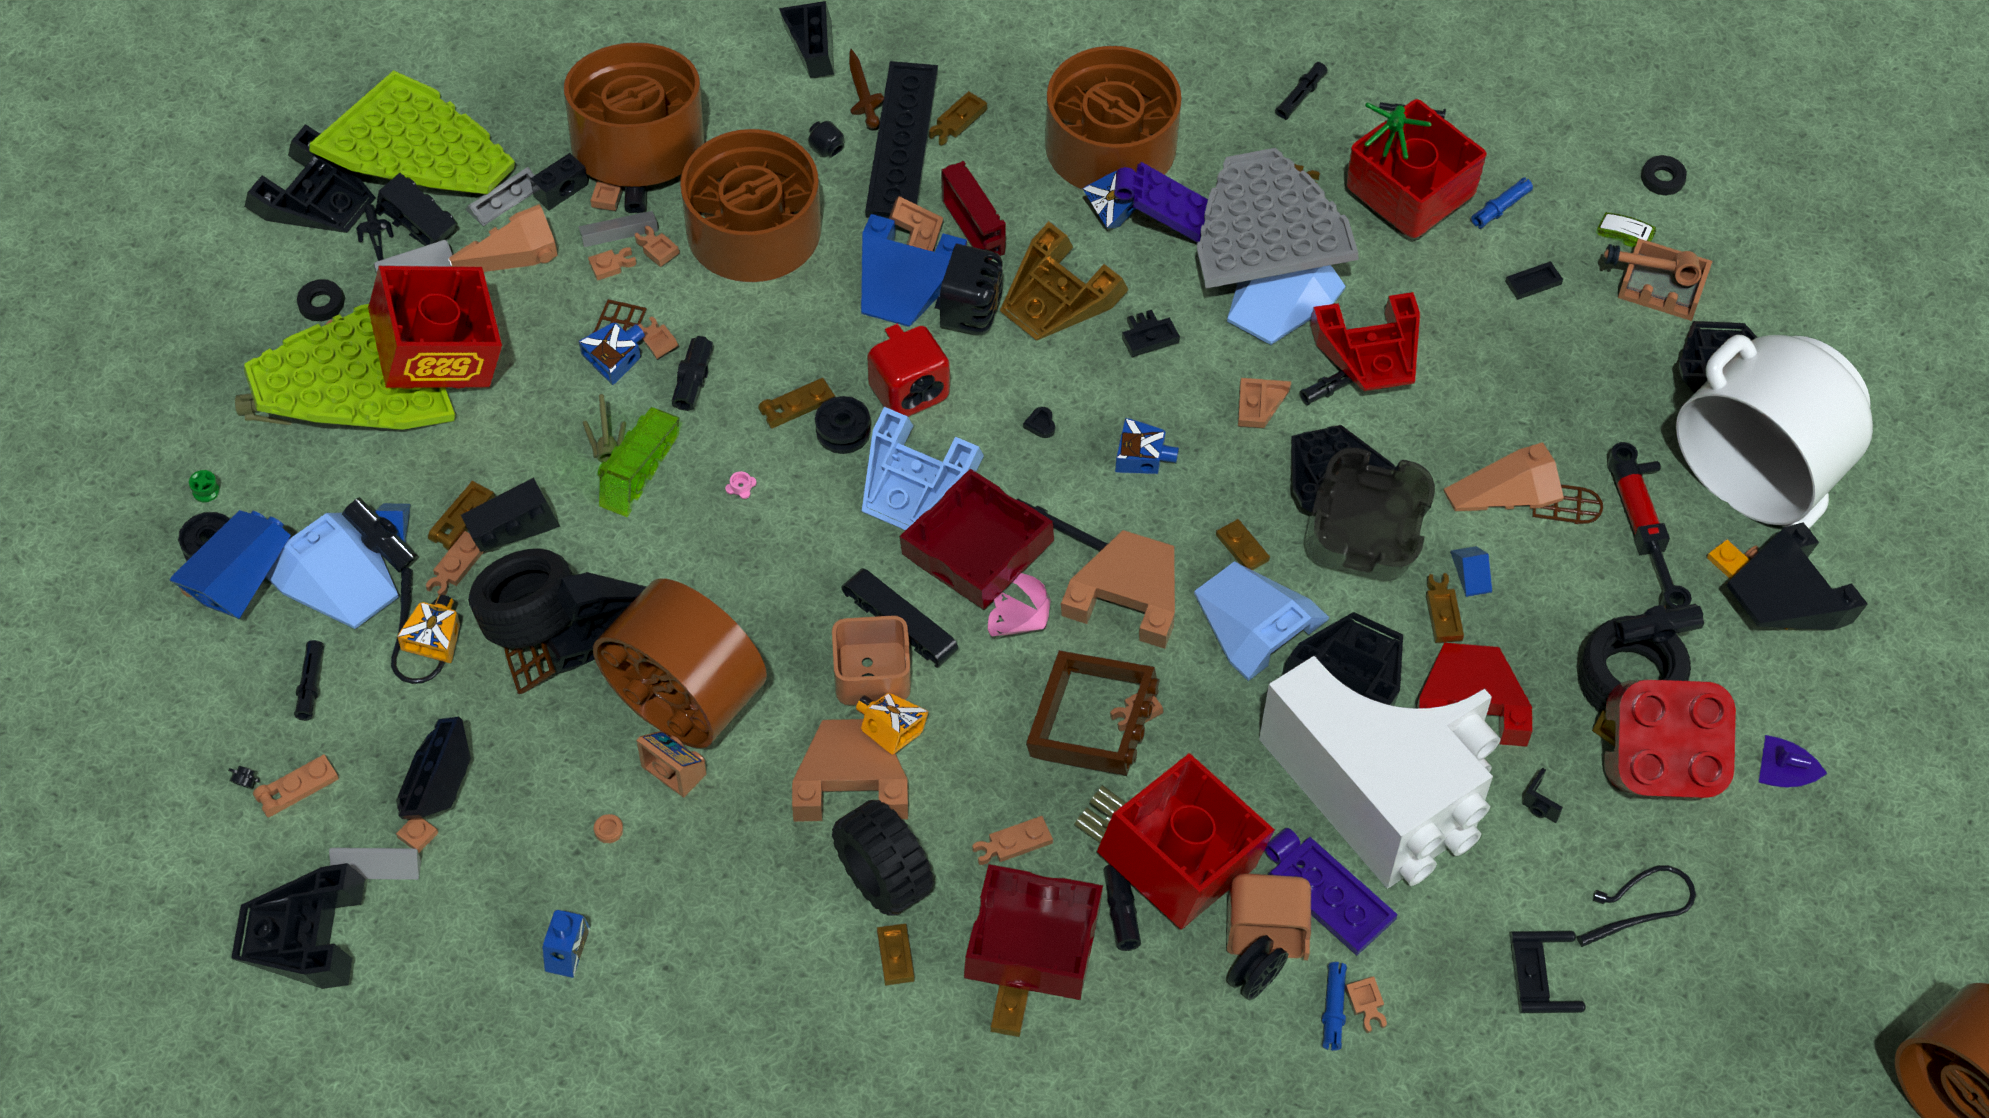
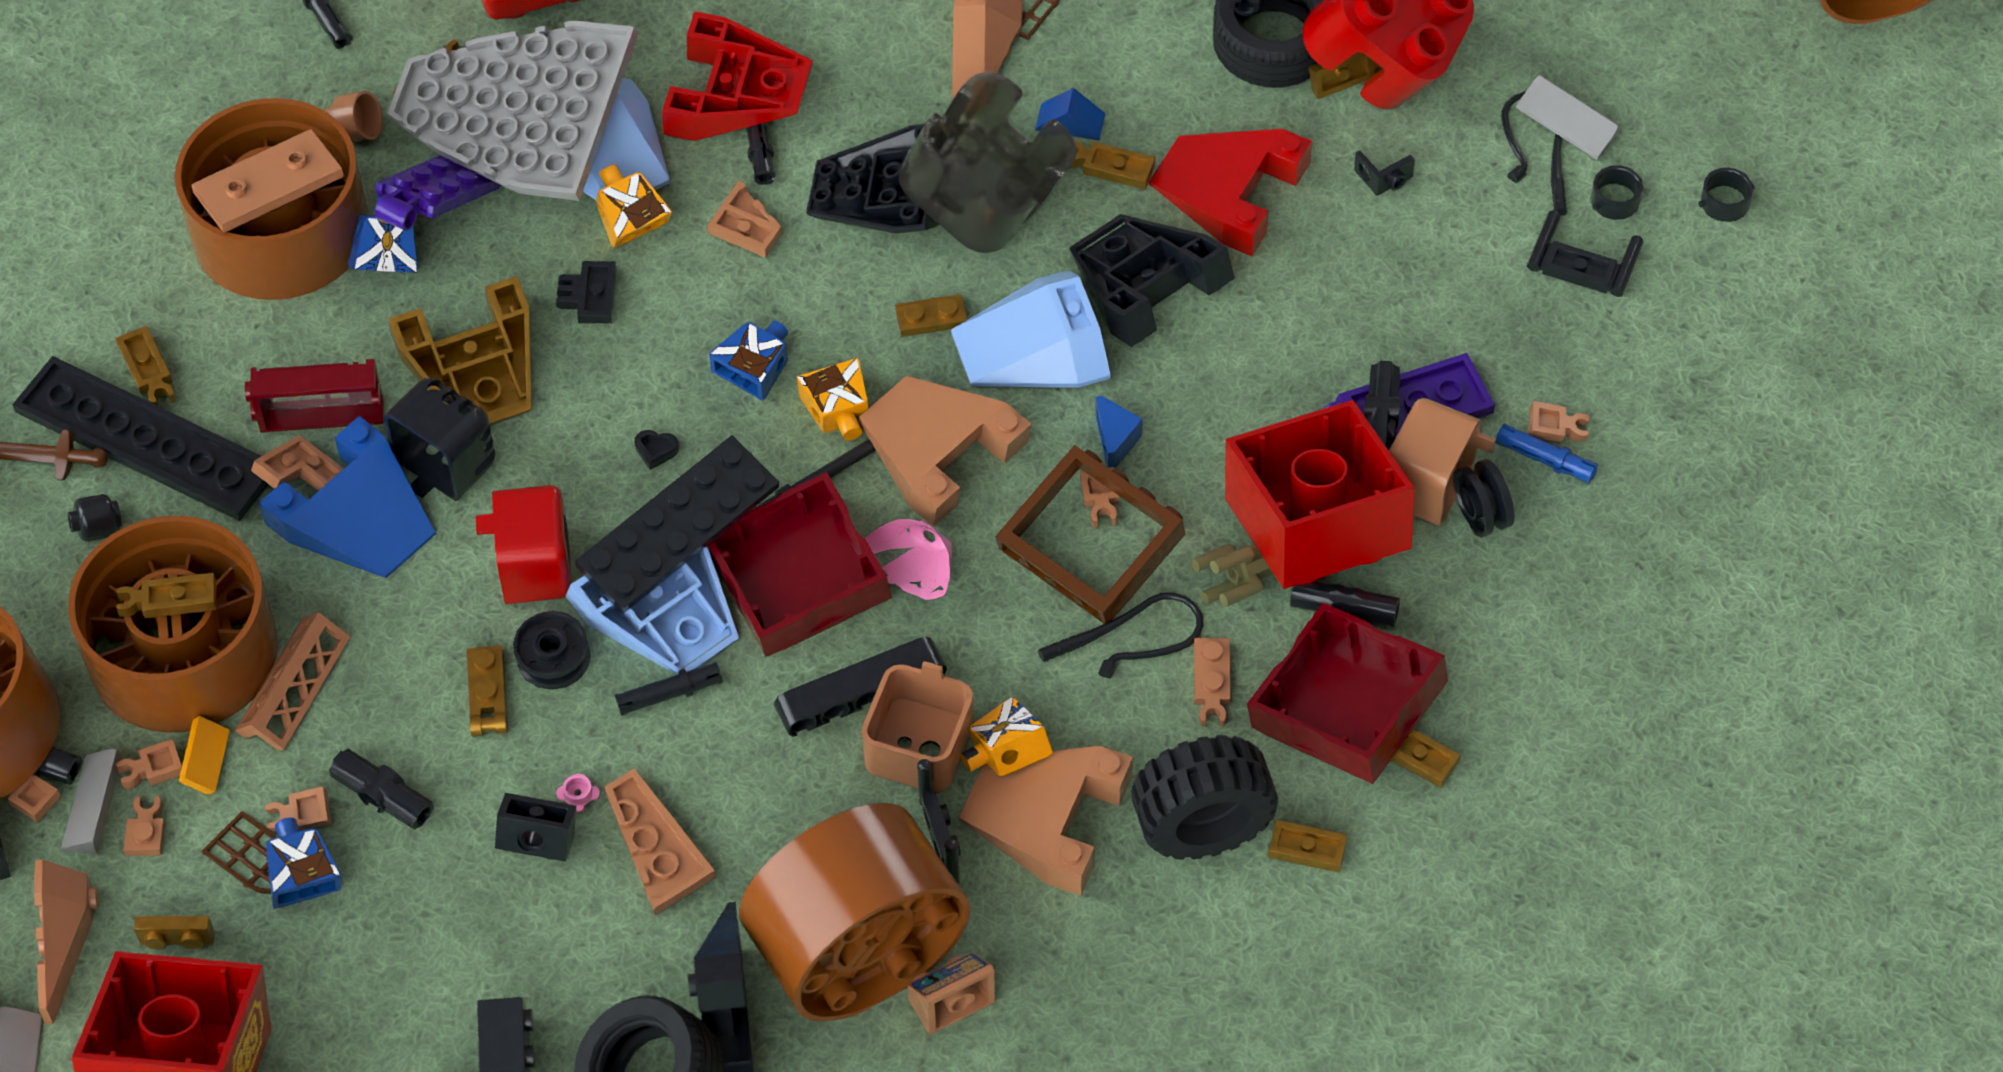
camera: 65 degrees left, 0 degrees up
(534, 299) = (187, 931): none -> pearl gold plate
(605, 445) = (442, 920): olive plant -> none
(635, 460) = (488, 889): clear neon green wedge -> none
(675, 269) = (204, 755): none -> light orange tile
(695, 467) = (535, 827): none -> black brick
(719, 545) = (658, 846): none -> nougat wing
(752, 185) = (169, 596): none -> pearl gold plate
(753, 285) = (281, 678): none -> nougat fence
(807, 704) = (937, 820): none -> black plate
(853, 511) = (669, 688): none -> black pin
(963, 448) = (677, 524): none -> black plate
(1009, 744) = (1108, 665): none -> black piece
(1104, 100) = (267, 180): none -> nougat plate
(1135, 511) = (835, 397): none -> torso
(1195, 698) = (1117, 430): none -> blue slope
(1214, 141) = (358, 114): none -> nougat piece
(1228, 324) = (629, 206): none -> torso
(1308, 864) = (1382, 401): none -> black piece
(1382, 773) = (1316, 290): white arch -> none
(1625, 958) = (1616, 175): none -> black piece
(1673, 913) = (1568, 117): none -> light grey slope
(1675, 1045) = (1731, 178): none -> black piece

